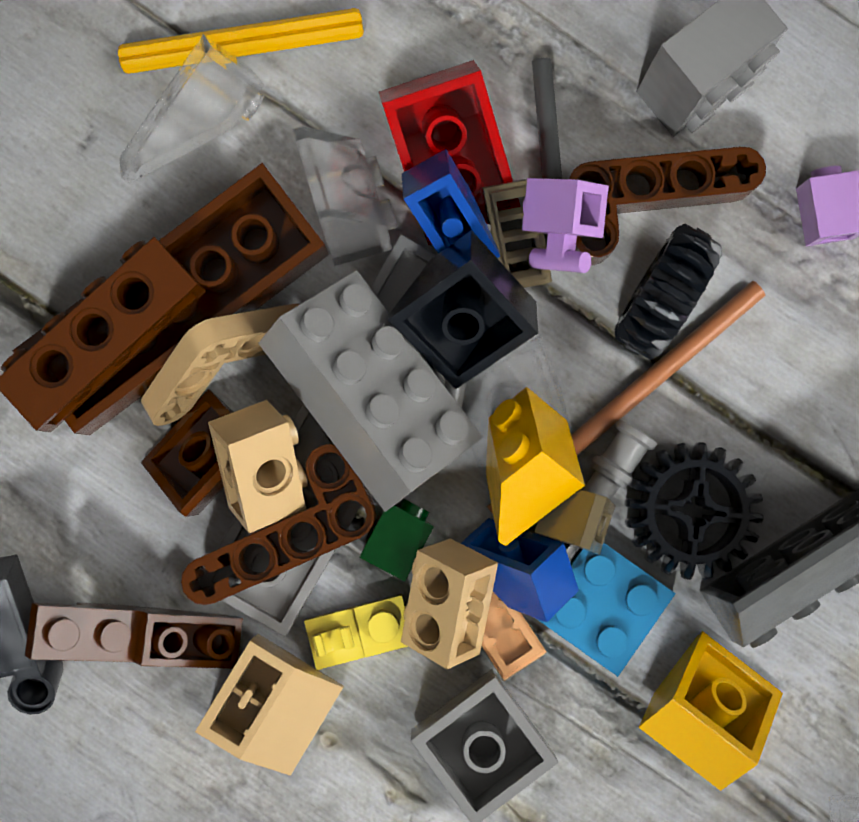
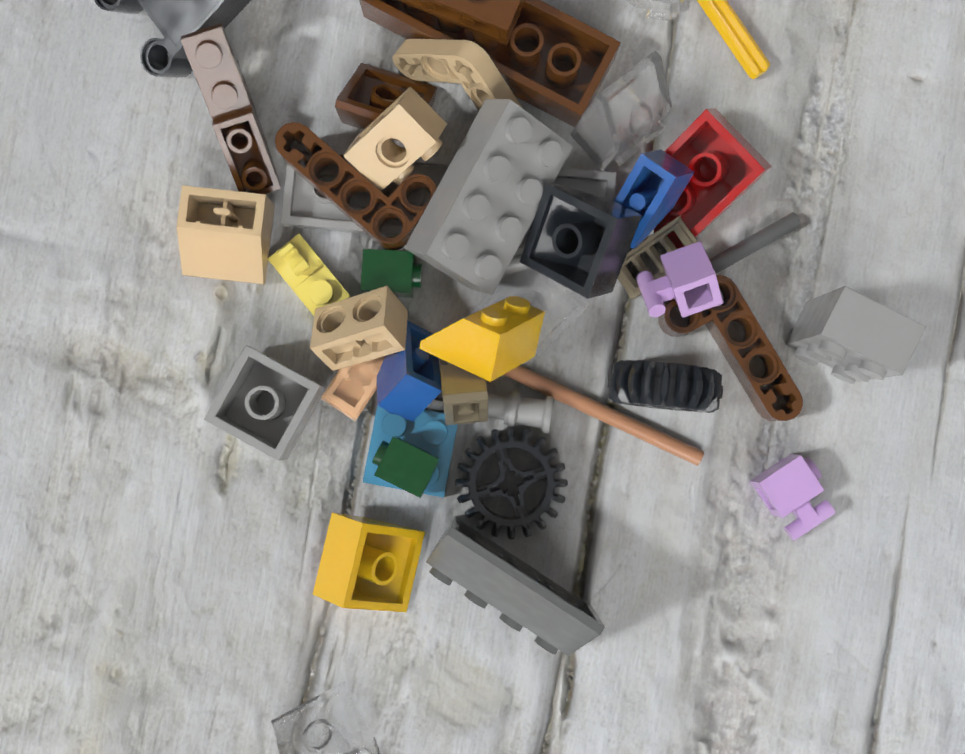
camera: 65 degrees right, 0 degrees up
(627, 620) = (405, 465): none -> dark green brick

